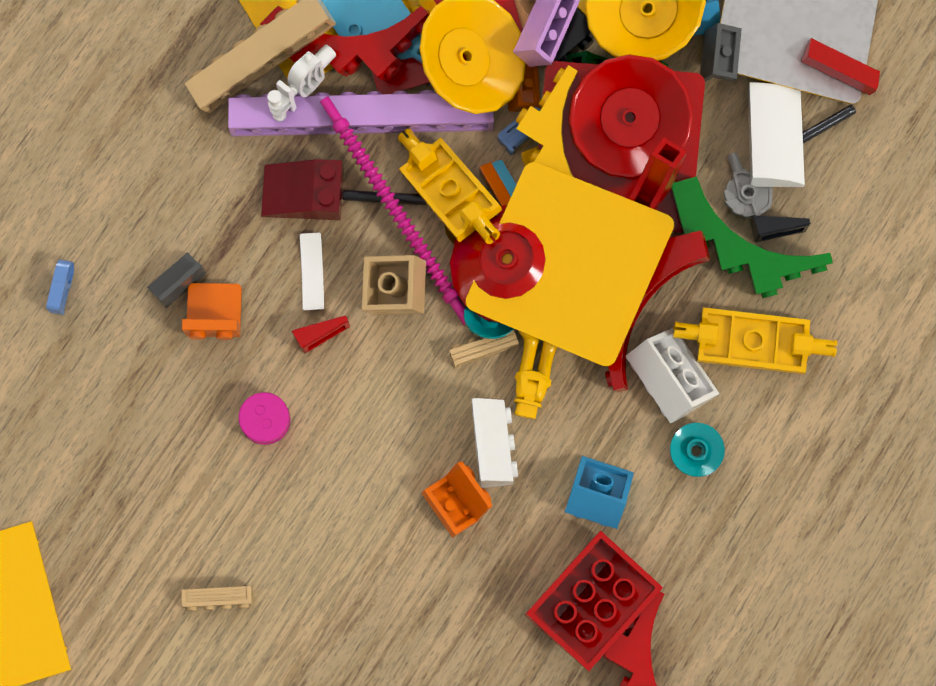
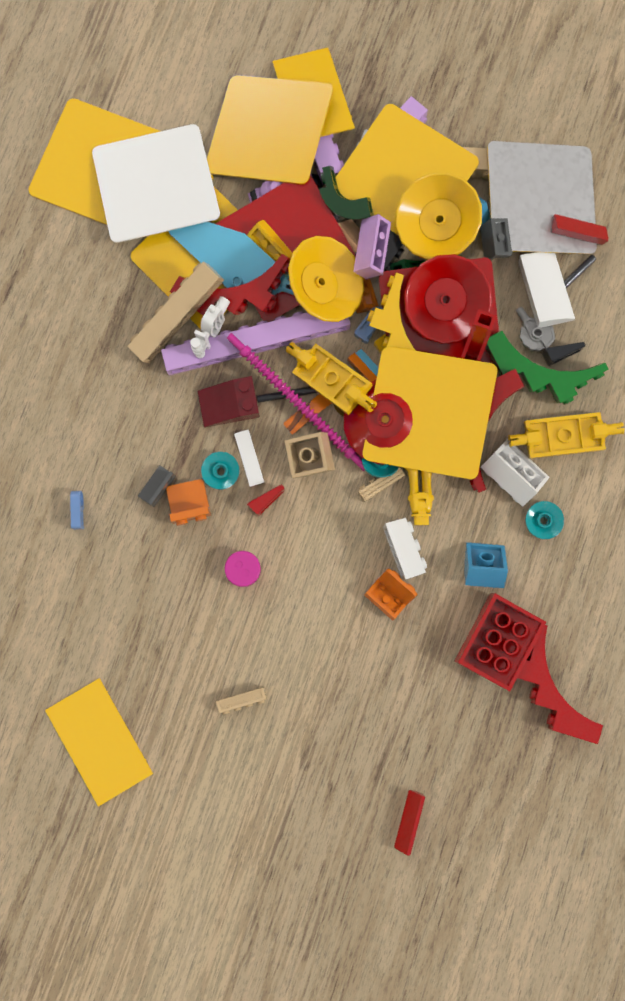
camera: 15 degrees left, 5 degrees up
(264, 266) = (213, 464): none -> teal dish
(392, 235) = (298, 420): none -> orange sticker

